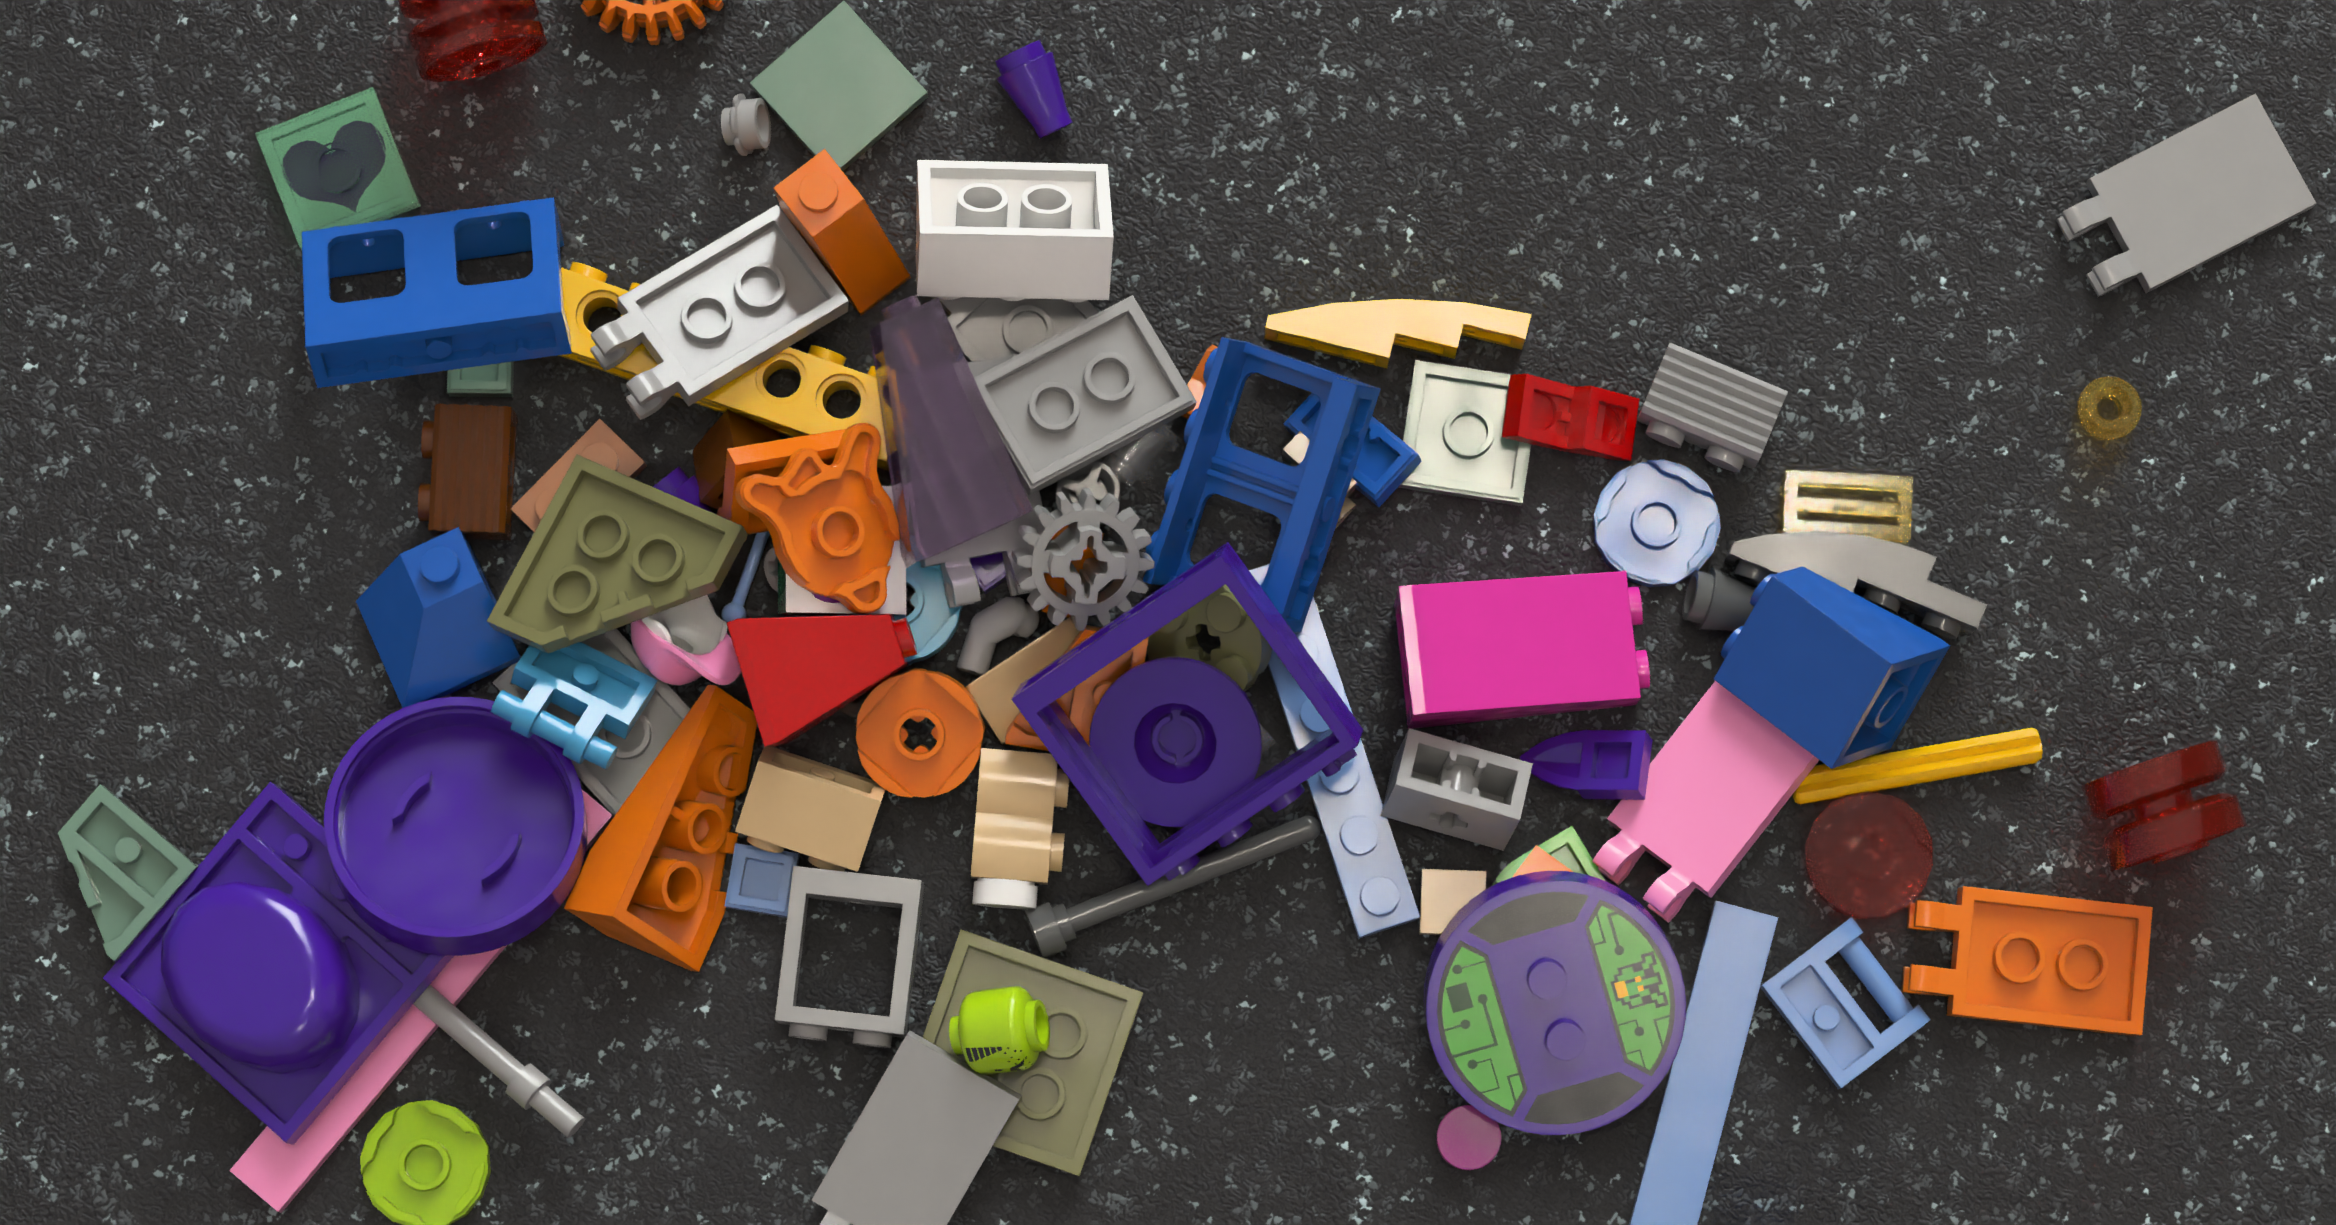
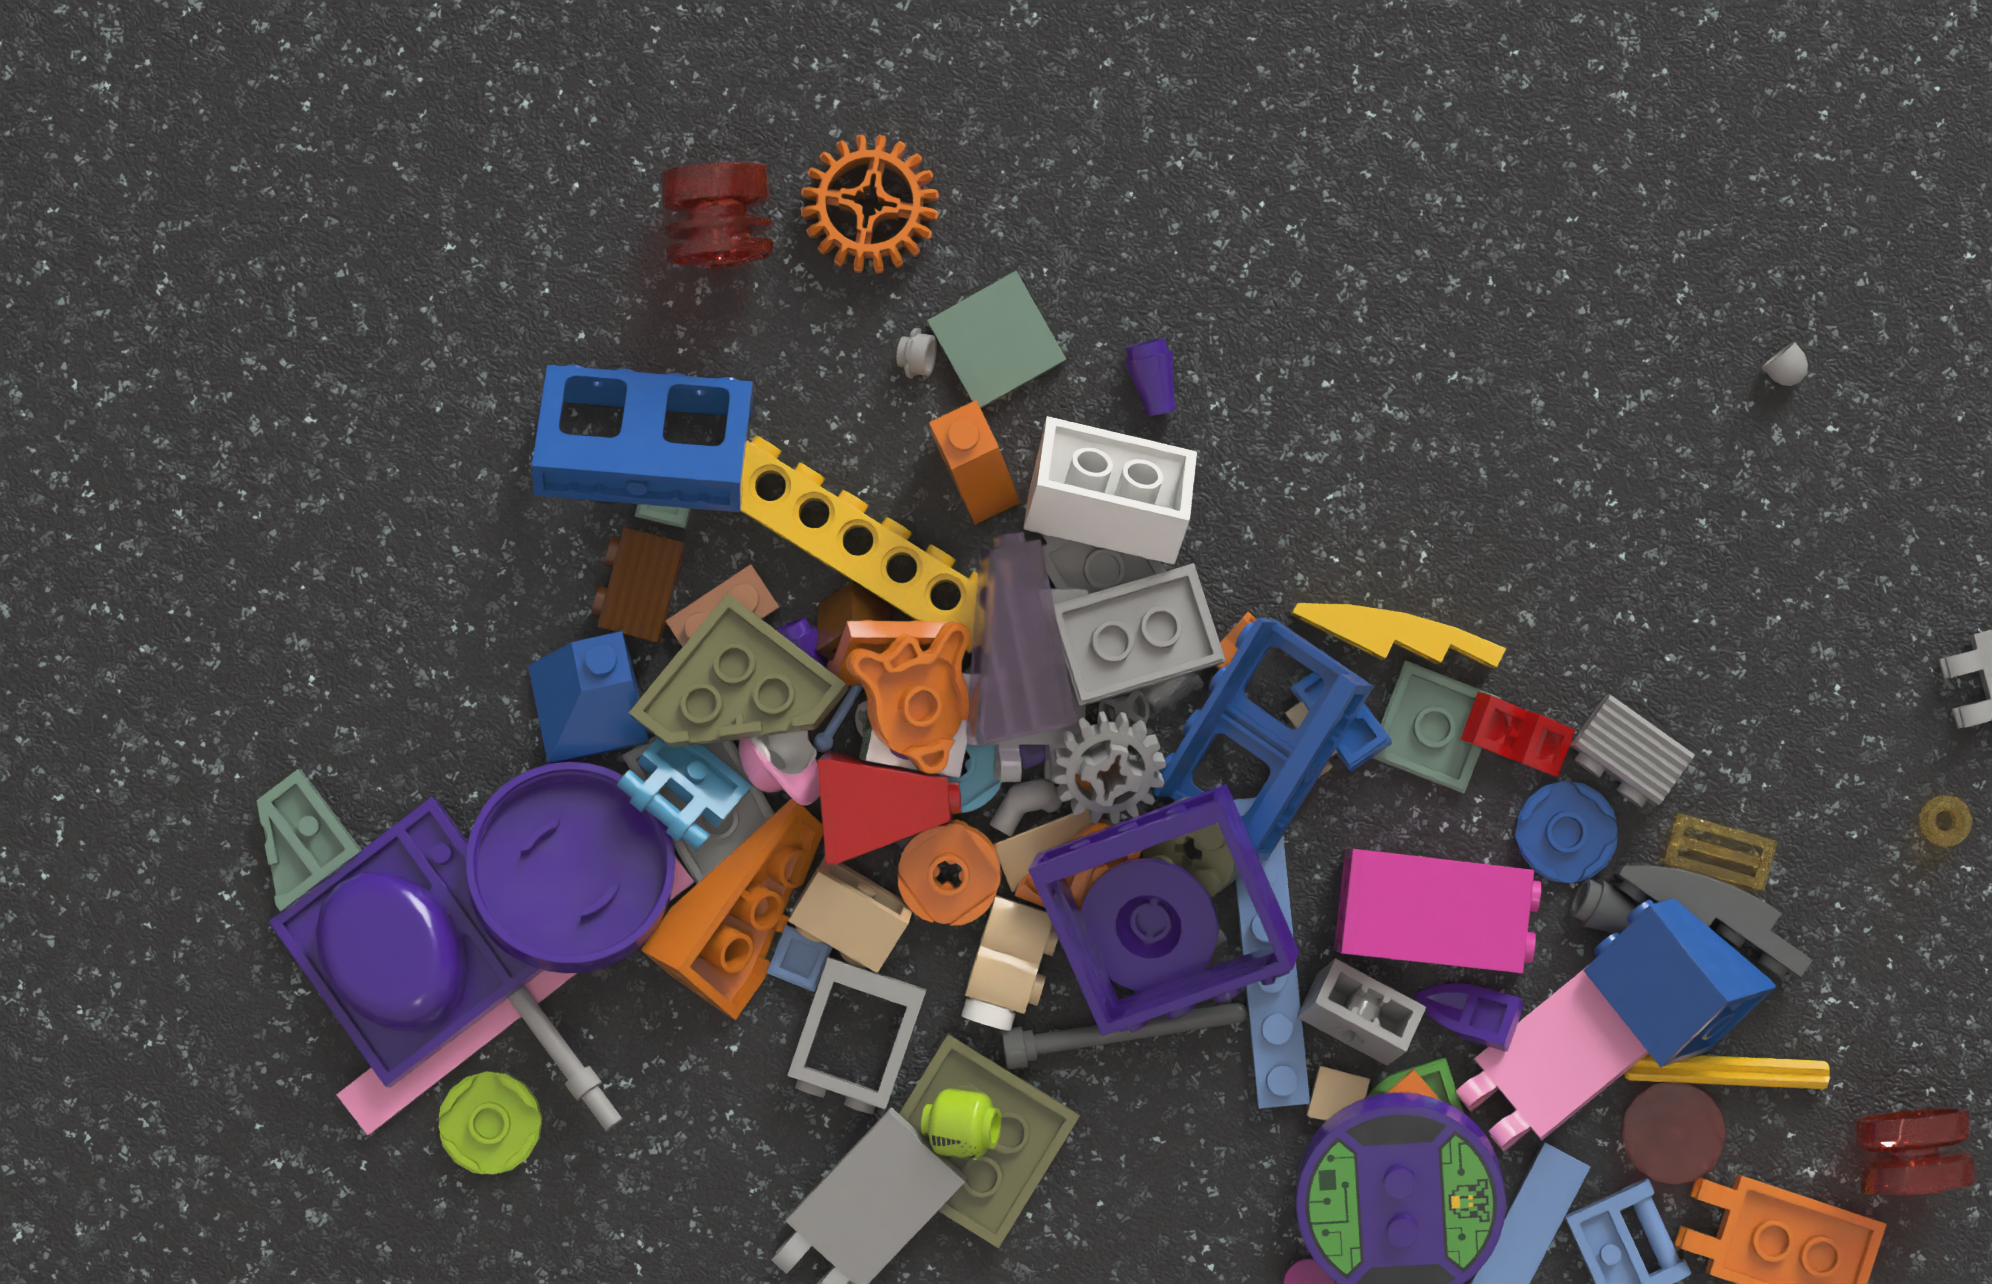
camera: 10 degrees right, 5 degrees up
(338, 166) = (586, 315): clear green tile -> none
(720, 312) = (866, 505): tile -> none

